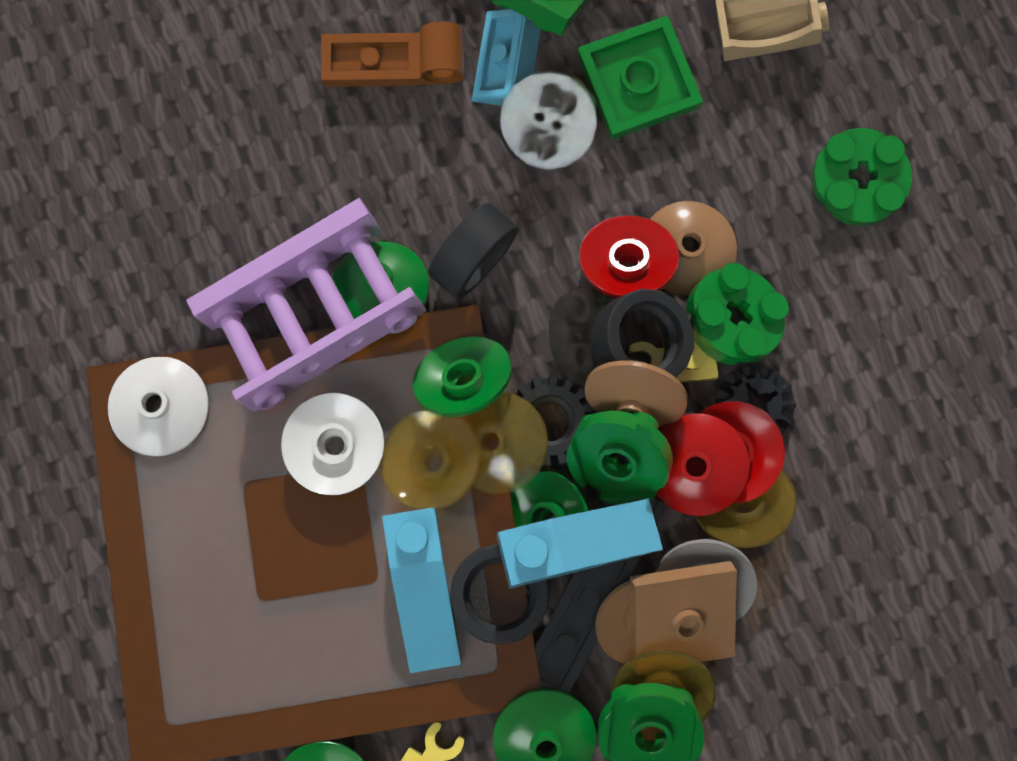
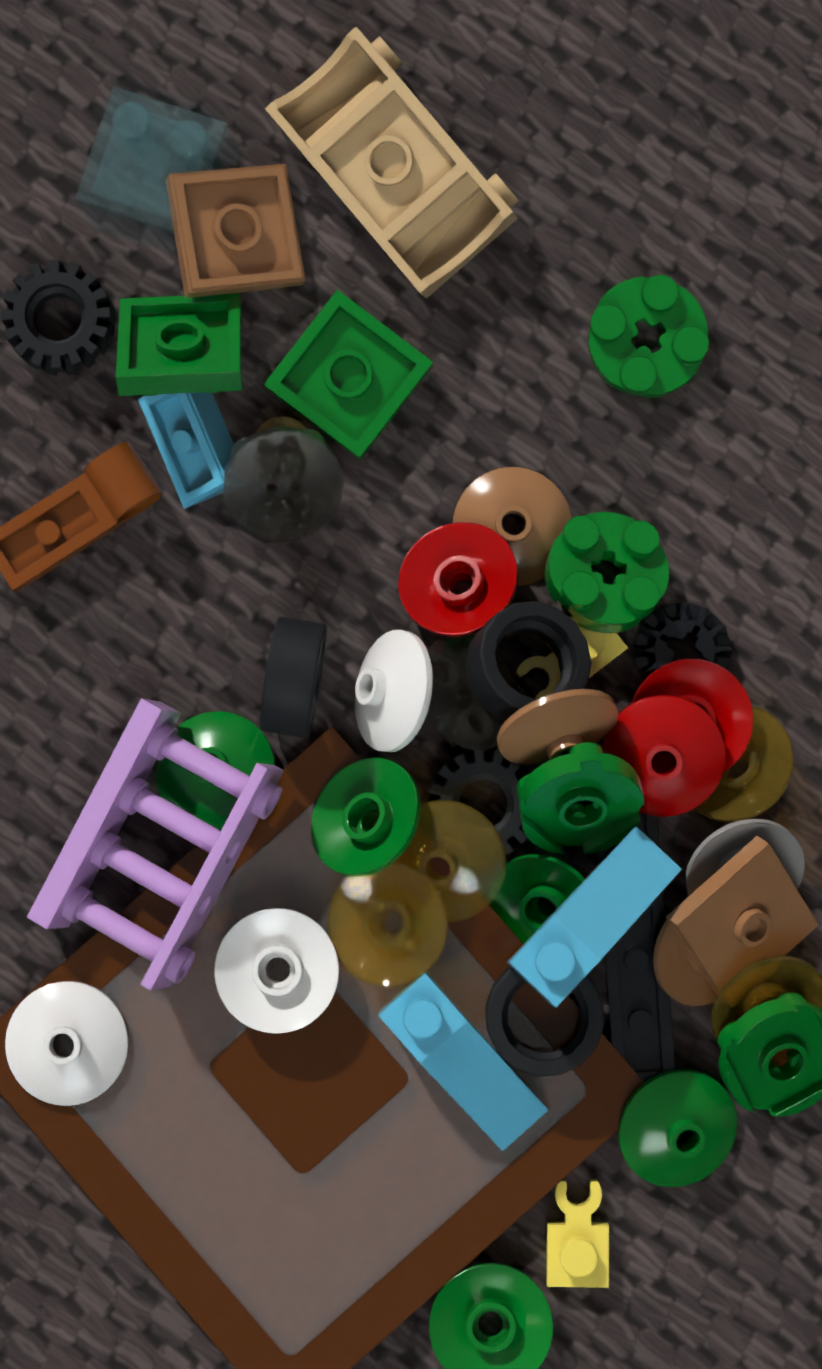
camera: 30 degrees left, 5 degrees up
(536, 303) = (393, 691): none -> white dish

